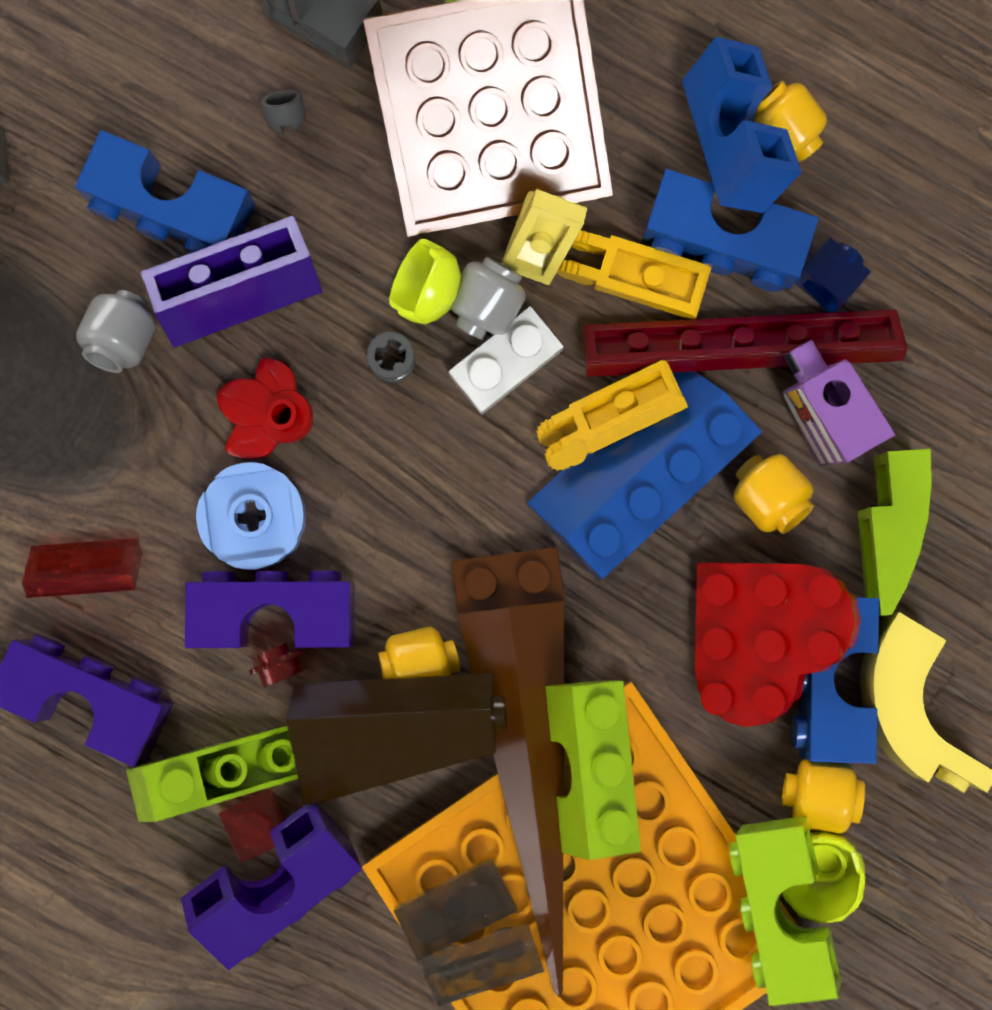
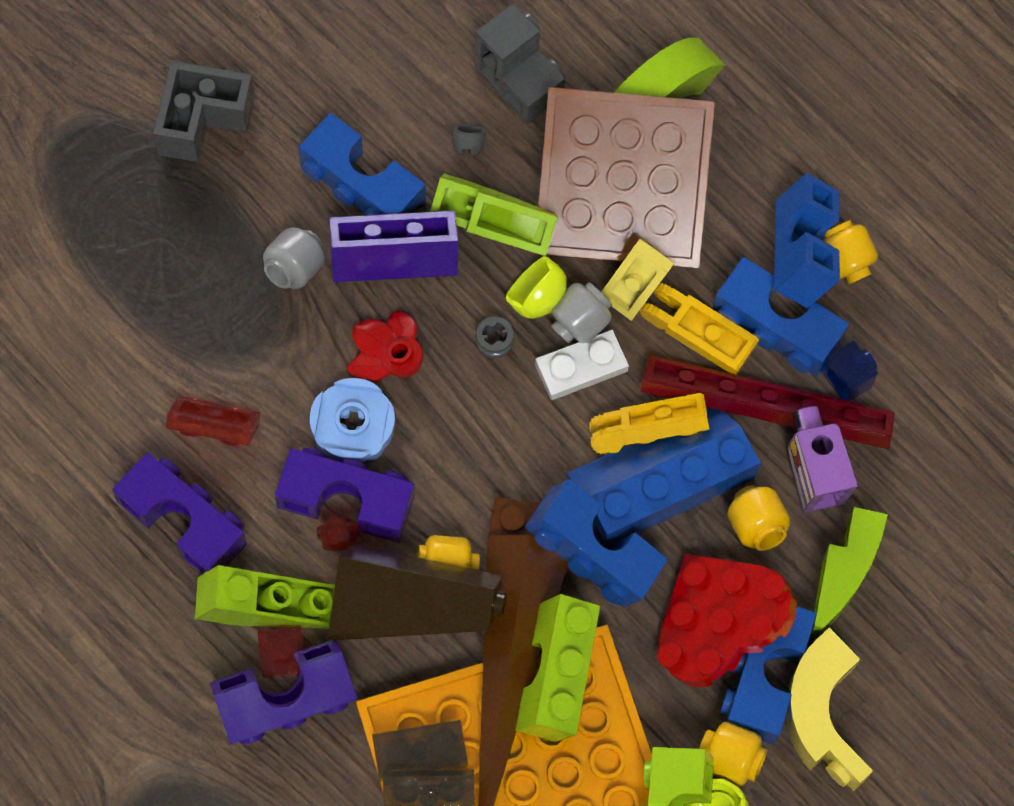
camera: 15 degrees right, 15 degrees down
(344, 203) = (495, 214): none -> lime slope
(549, 582) = (565, 527): none -> blue arch

